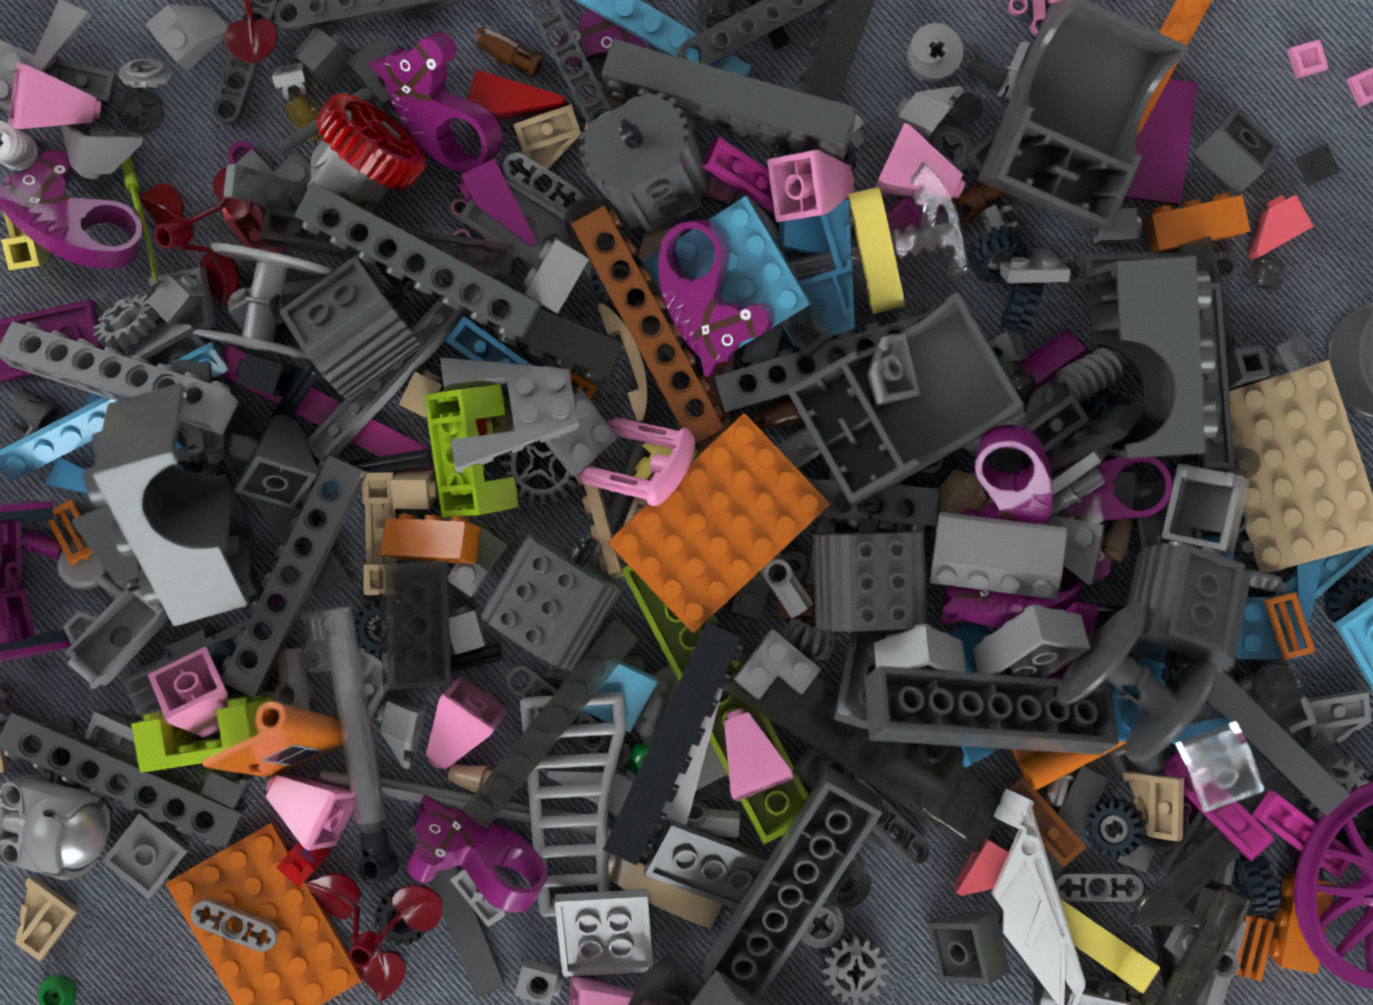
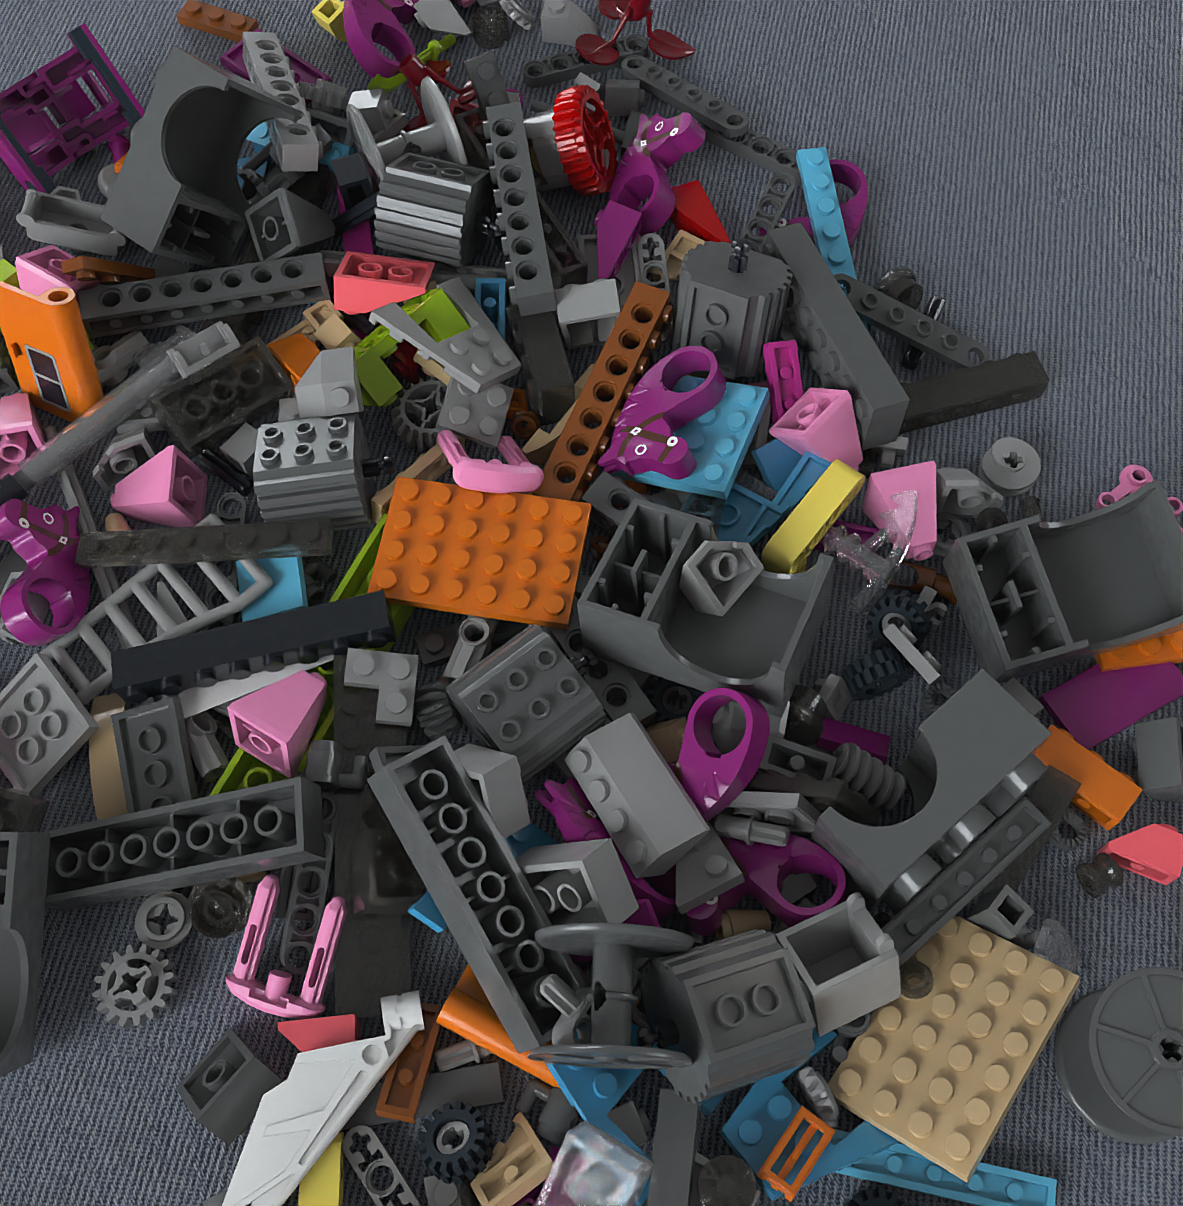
camera: 55 degrees right, 25 degrees down
(217, 648) = (107, 271): none -> dark orange plate
(359, 612) = (203, 348): none -> light grey hinge
(393, 421) = (373, 281): none -> coral slope
(489, 541) = (330, 385): none -> light grey slope
(509, 51) = (732, 200): reddish brown piece -> none
(607, 397) = (521, 431): none -> reddish brown plate
(811, 752) = (324, 767): none -> dark grey piece
(931, 882) = (274, 996): none -> bright pink piece
(1122, 713) = (574, 1010): none -> light grey beam

